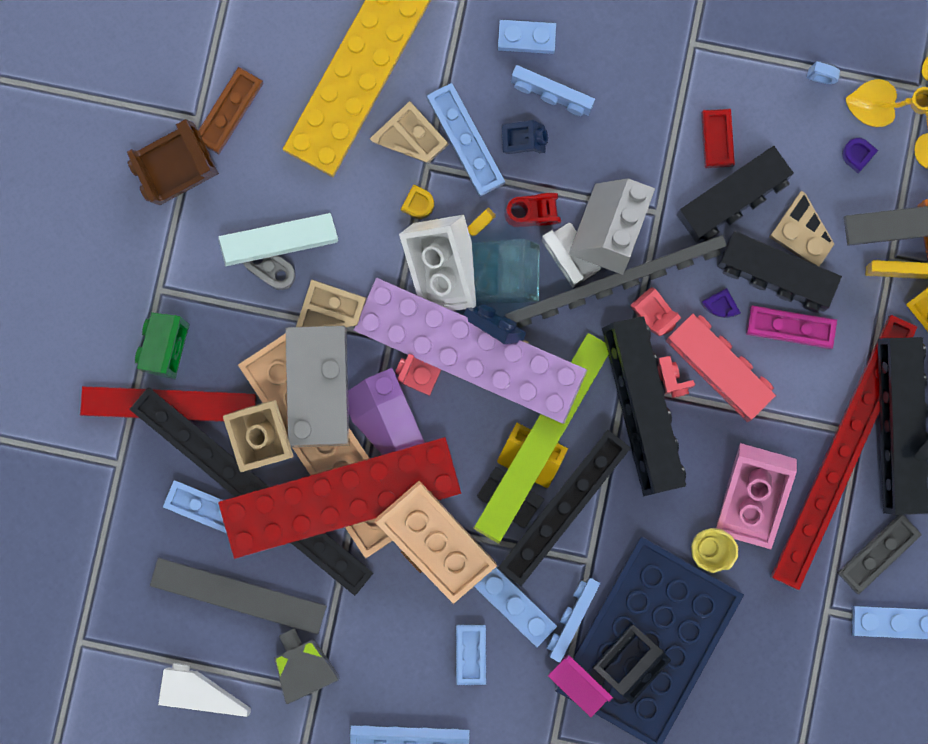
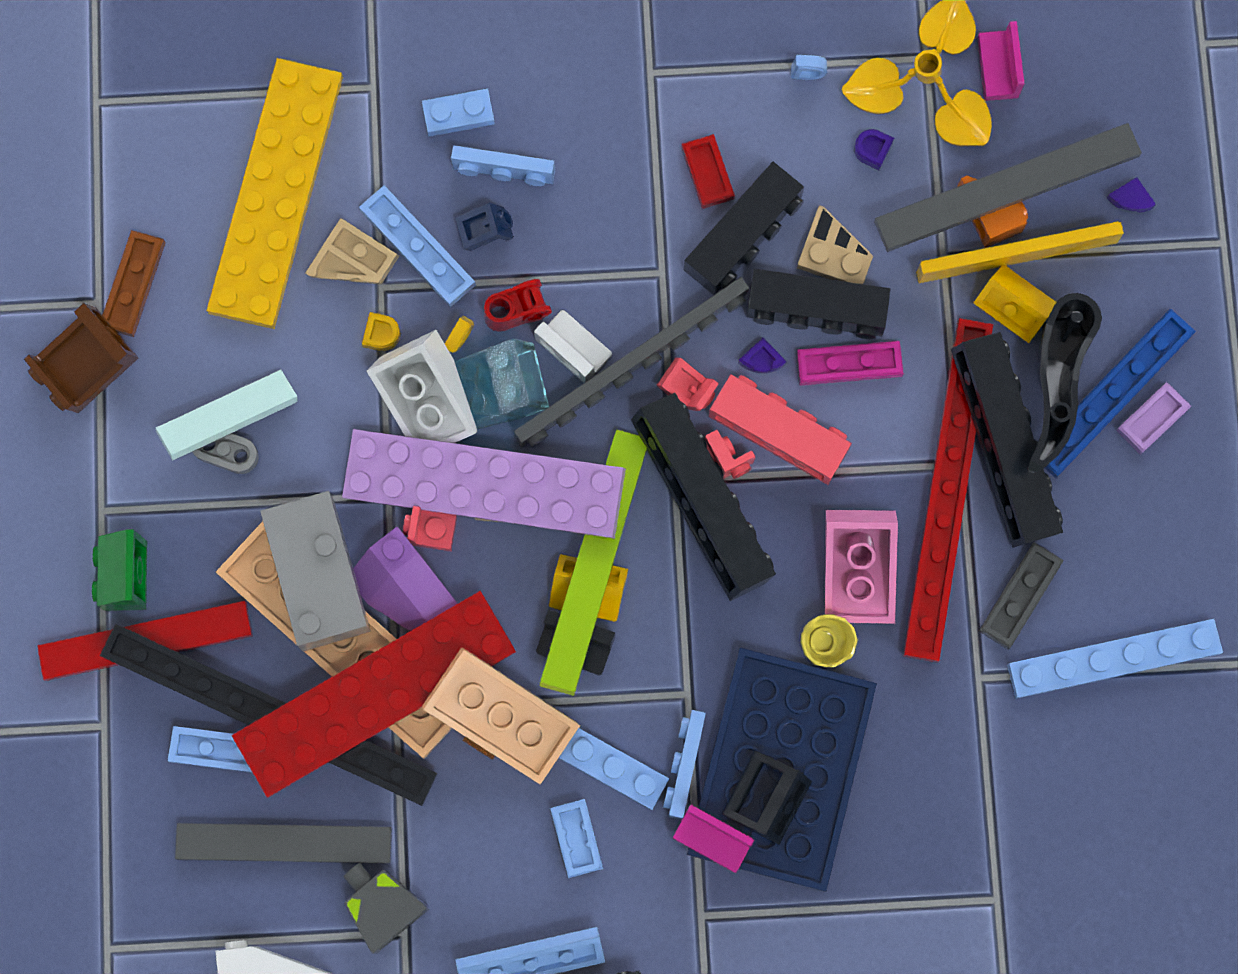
camera: 15 degrees left, 5 degrees down
(258, 436) = (259, 645): tan slope -> none
(330, 307) = (307, 475): tan wing -> none
(494, 325) = (511, 447): dark blue plate -> none
(564, 508) = (640, 637): black brick -> none
(612, 223) = (611, 296): light grey slope -> none

